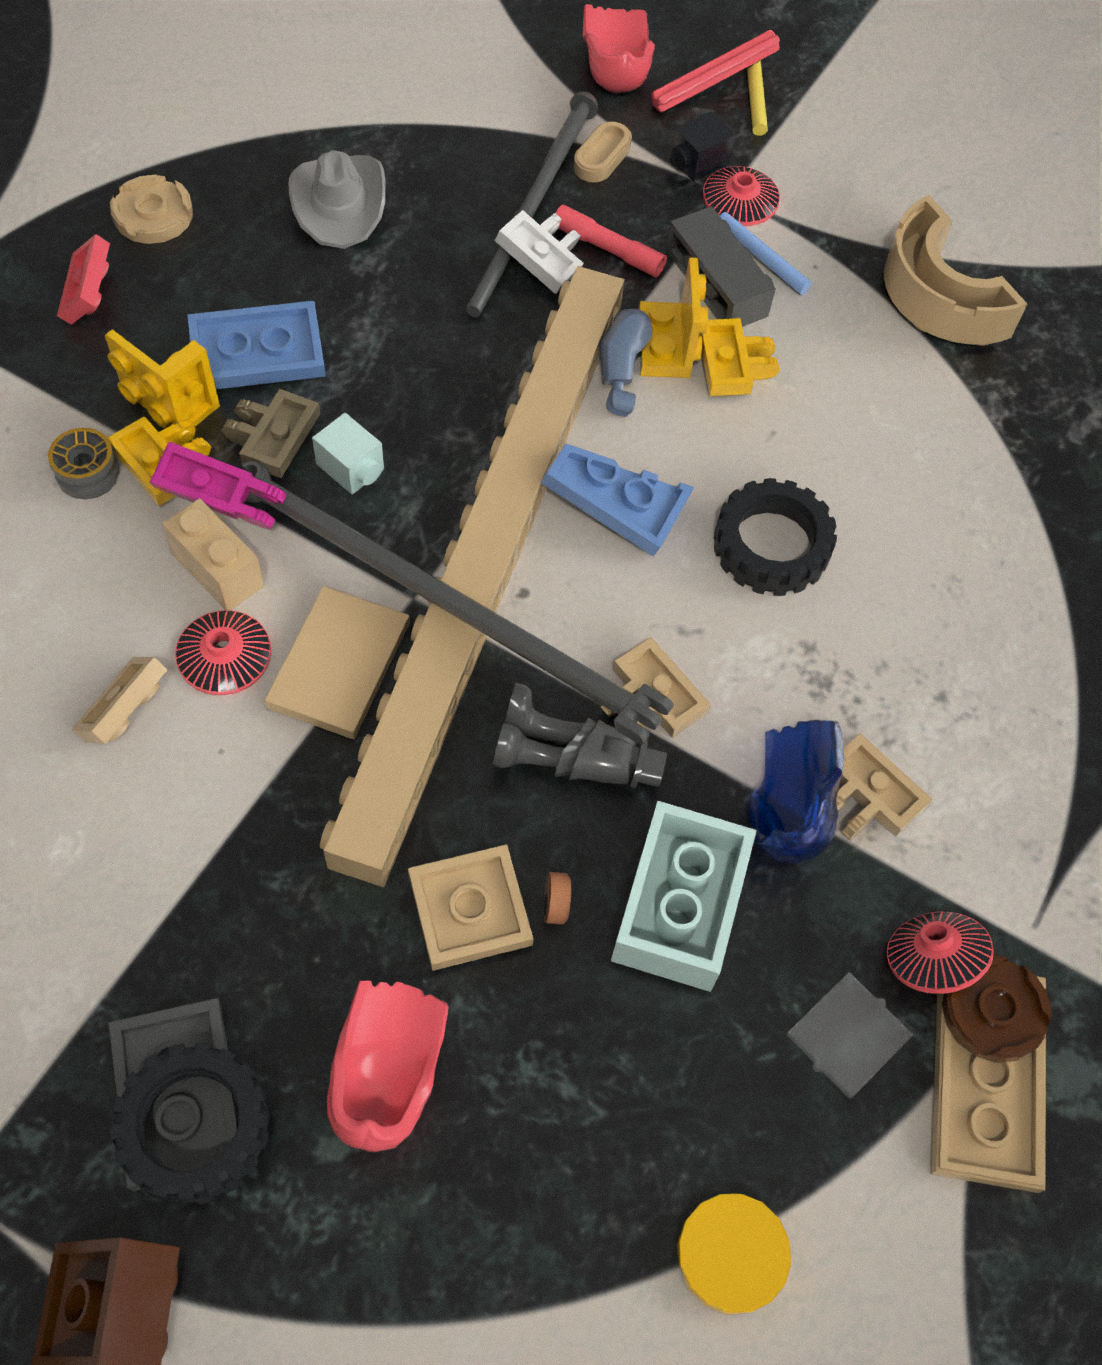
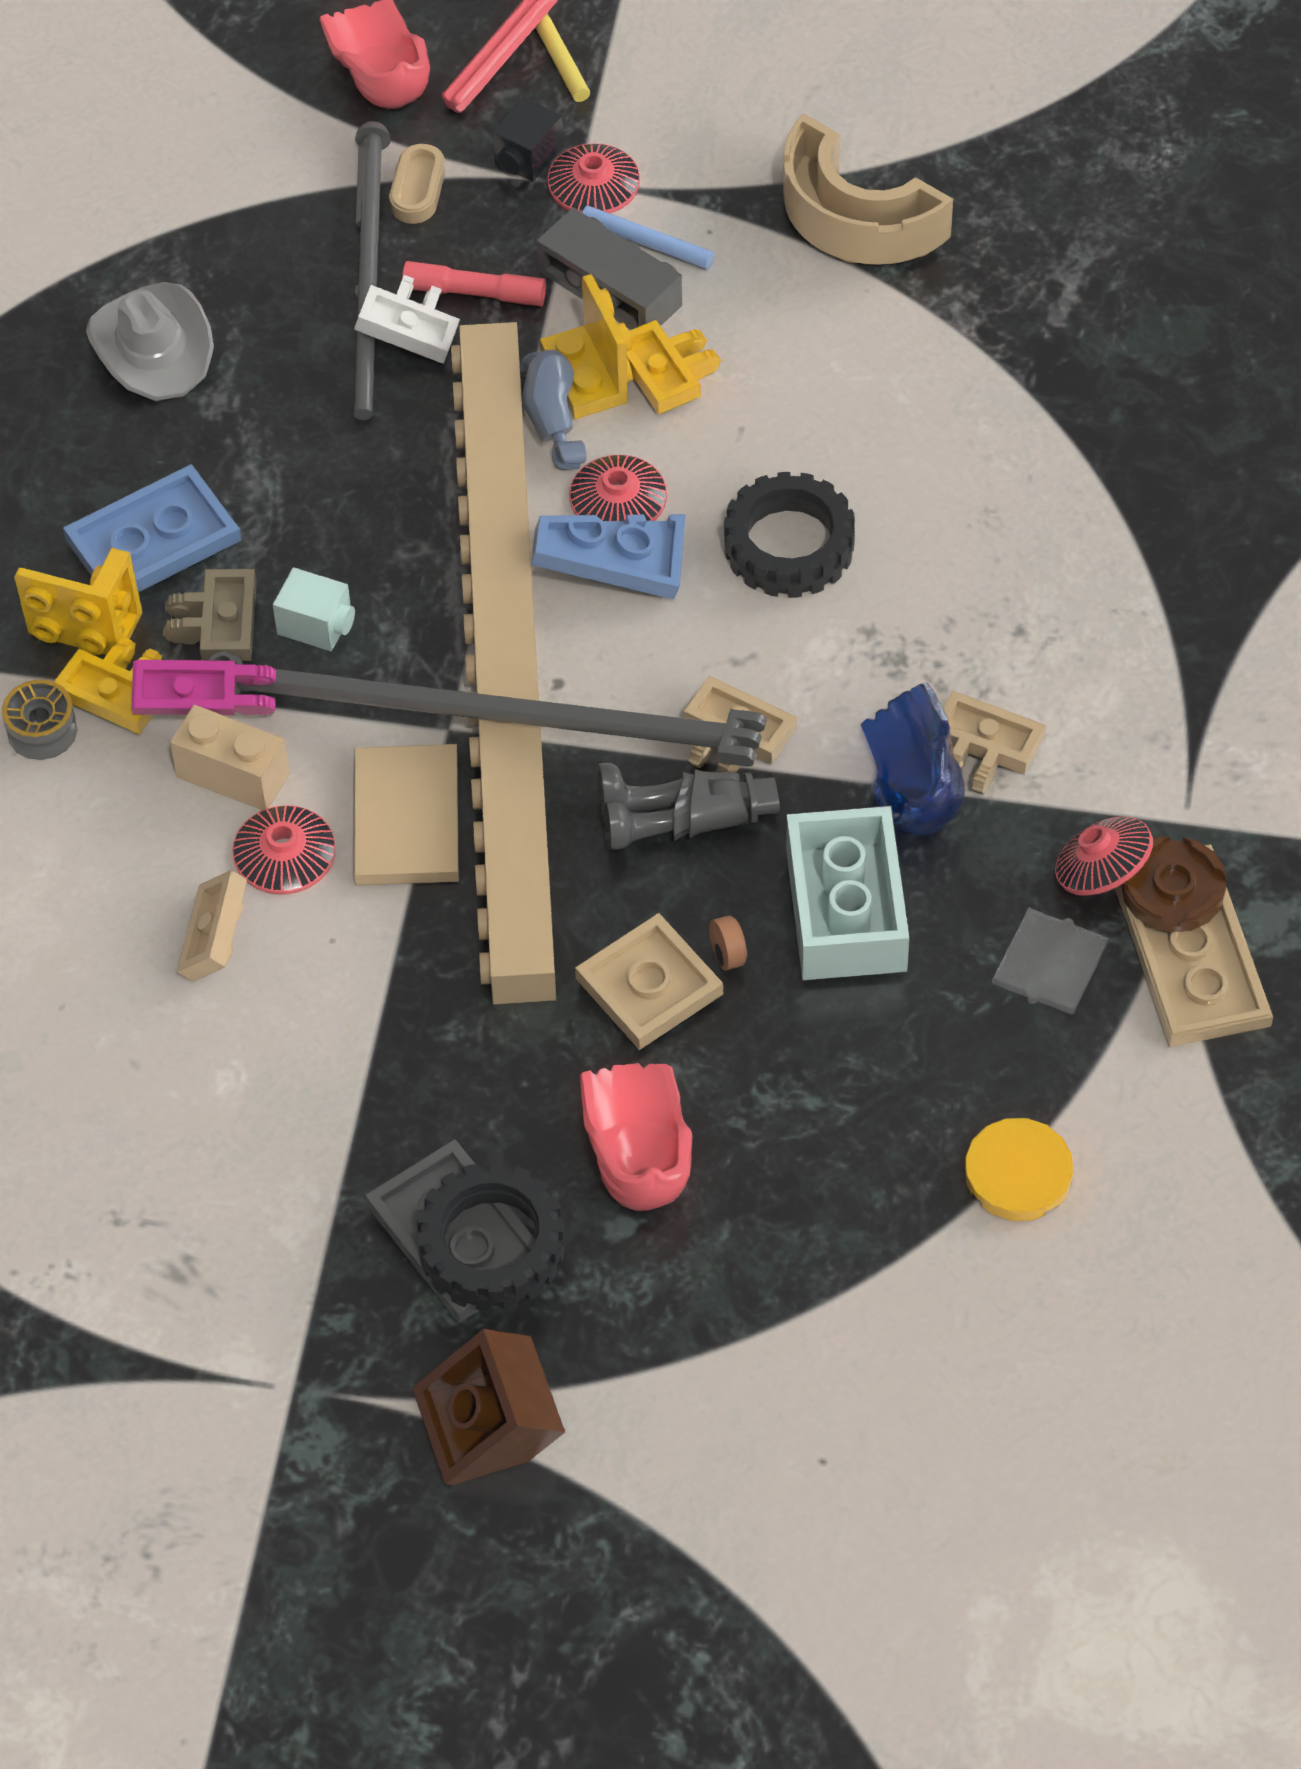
camera: 15 degrees left, 5 degrees down
(665, 456) = (640, 491): none -> dish

